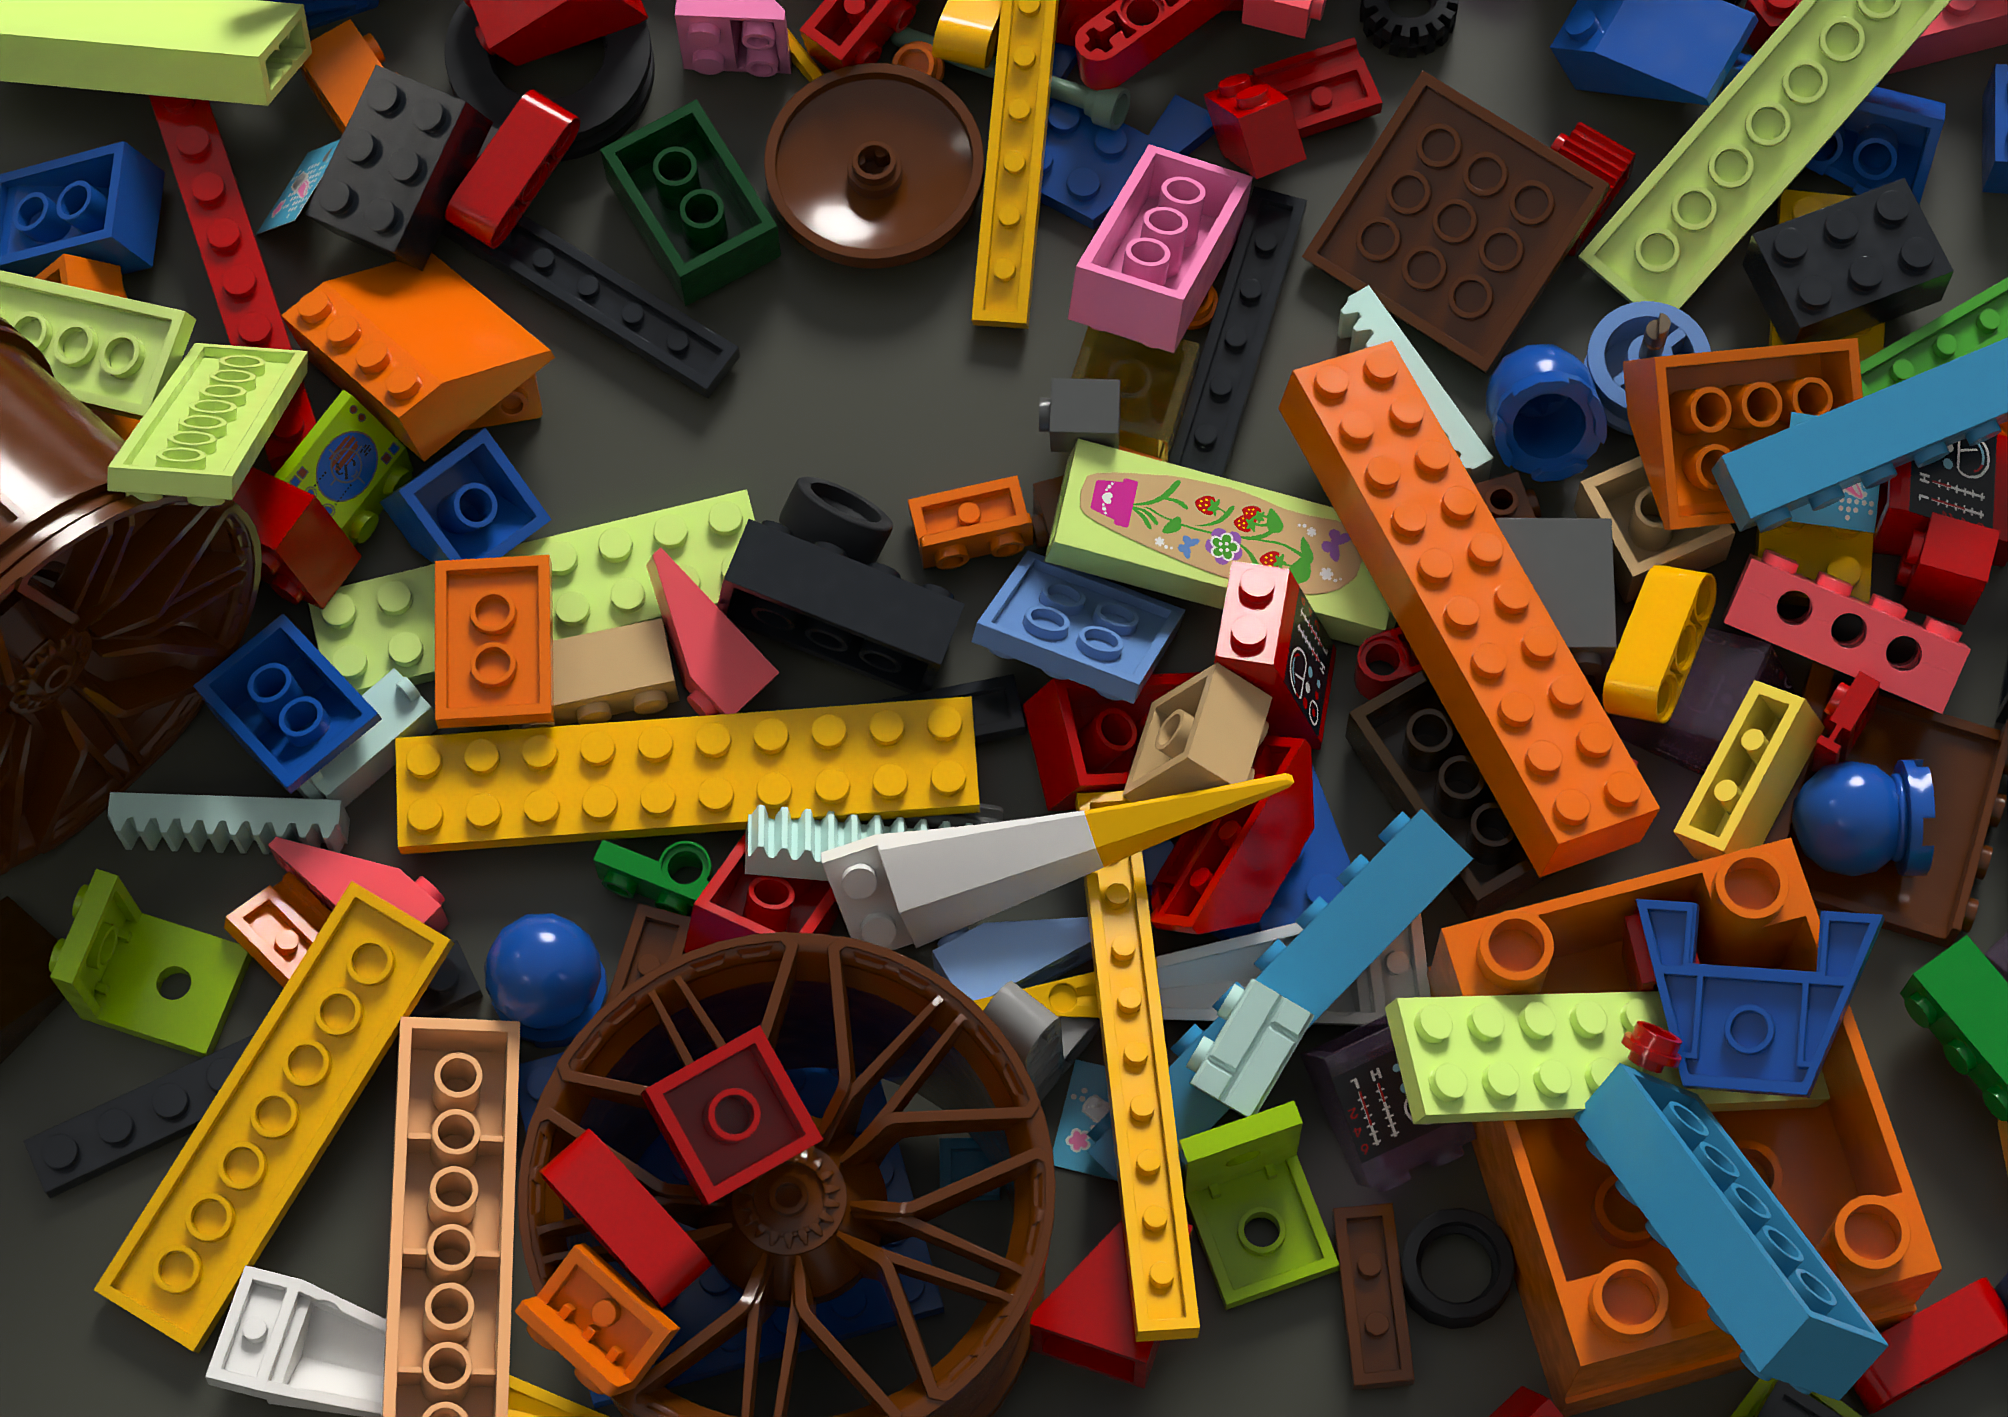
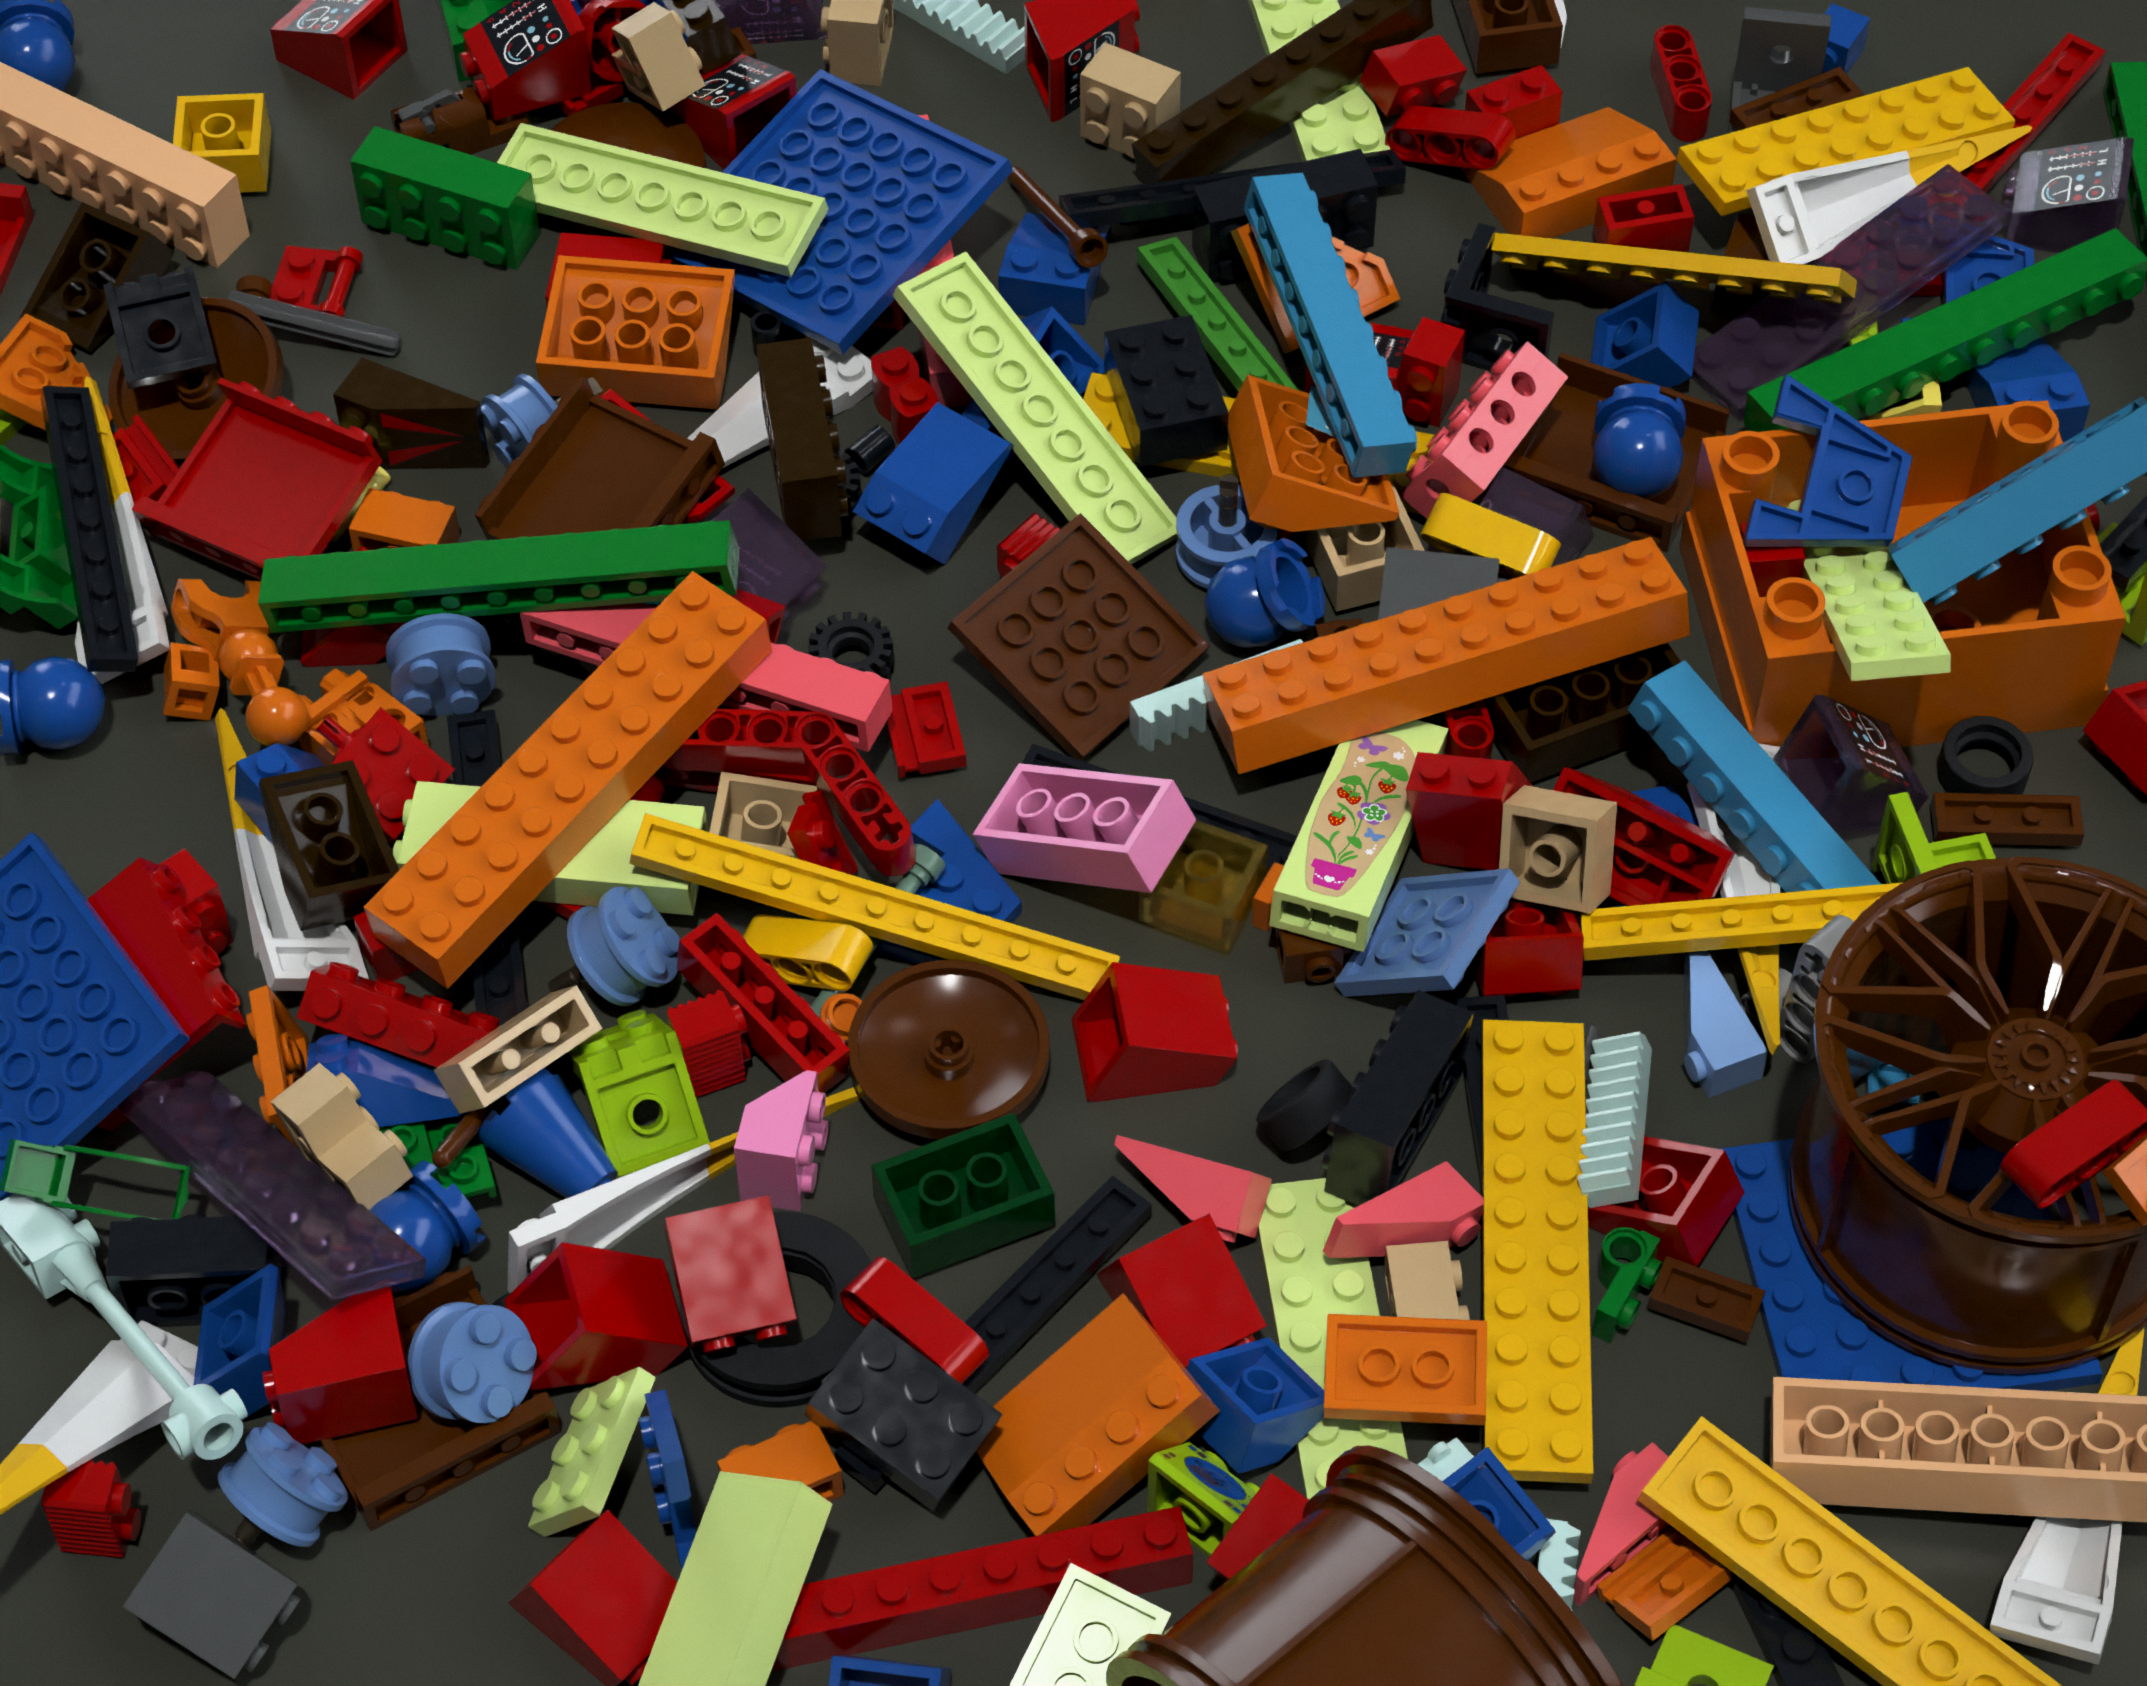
camera: 85 degrees left, 15 degrees down
(208, 424) = (1246, 1482): yellowish green plate -> none
(299, 187) = (888, 1517): medium azure sticker -> none
(545, 978) = (1722, 1368): blue tile -> none
(590, 429) = (1187, 1290): none -> red slope
(731, 430) = (1203, 1186): none -> coral slope
(731, 1116) = (1995, 1052): red brick -> none
(926, 372) = (1152, 1032): none -> red slope
(944, 879) = (1658, 1053): white plate -> none
(971, 523) = (1307, 1017): orange bracket -> none
(1083, 411) = (1247, 888): dark grey brick -> none
(1250, 1047) = (1834, 830): light aqua brick -> none
(1254, 125) = (967, 758): red brick -> none
(1652, 1047) = (1868, 544): red plate -> none
(1750, 773) = (1610, 498): light yellow brick -> none
(1846, 719) = (1564, 439): red plate -> none

